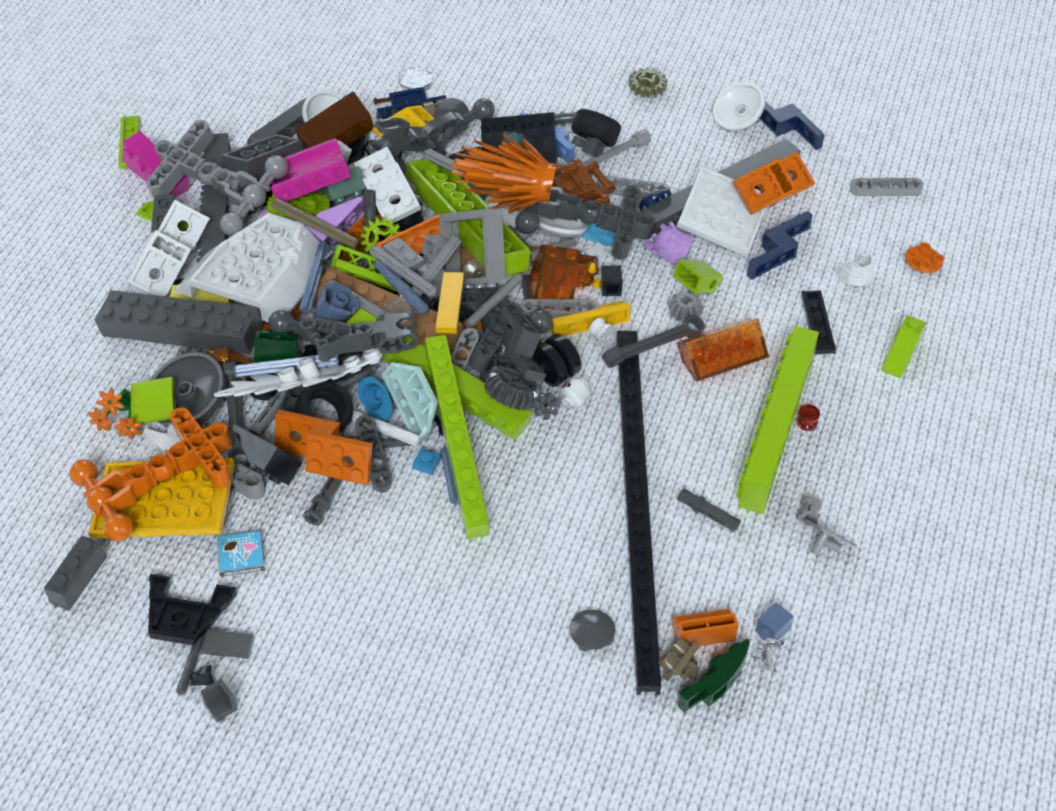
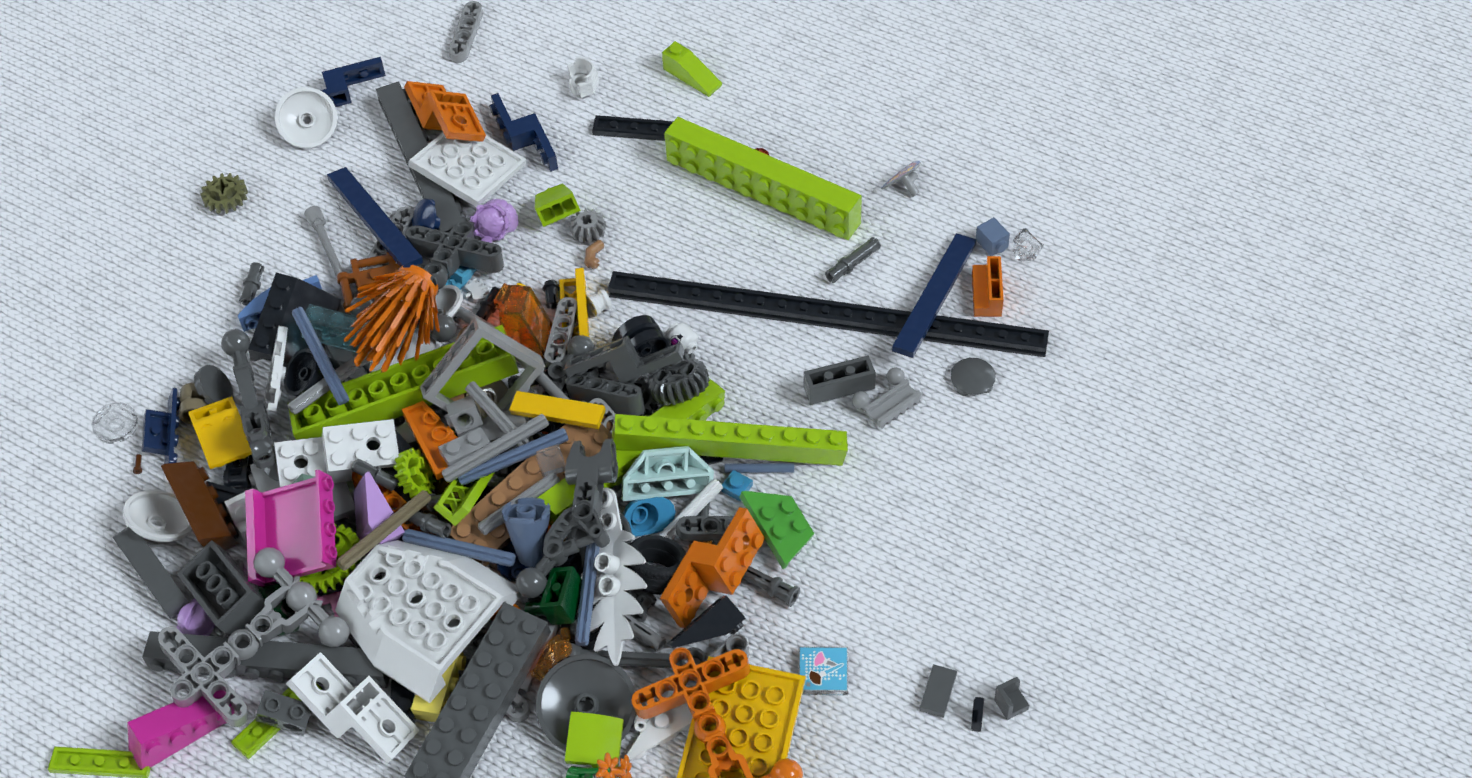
camera: 75 degrees left, 5 degrees up
(183, 619) = (901, 734): black wing -> none
(189, 666) = (953, 727): dark grey bar -> none
(385, 495) = (779, 522): none -> bright green wing
(465, 140) = (277, 370): none -> white wing
(488, 138) = (320, 356): none -> sand blue axle
(542, 564) = (892, 402): none -> light grey gear
(553, 514) = (839, 380): none -> dark grey brick
(591, 147) = (315, 262): dark grey piece -> none
(596, 125) = (298, 247): black tyre -> none
(604, 297) = (551, 293): none -> black pin
(611, 280) = (531, 276): black brick -> none
(616, 355) = (617, 227): dark grey piece -> none
(645, 169) = (374, 218): none -> dark blue tile
(656, 315) = (590, 254): none -> medium nougat arm
(679, 579) = (934, 296): none -> dark blue tile
(682, 662) = (1022, 310): dark tan hips -> none
(721, 676) = (1042, 285): dark green slope -> none
(723, 349) = (653, 207): clear orange slope -> none
(809, 510) = (871, 184): light grey bush -> none
(924, 258) = (577, 27): orange dish -> none

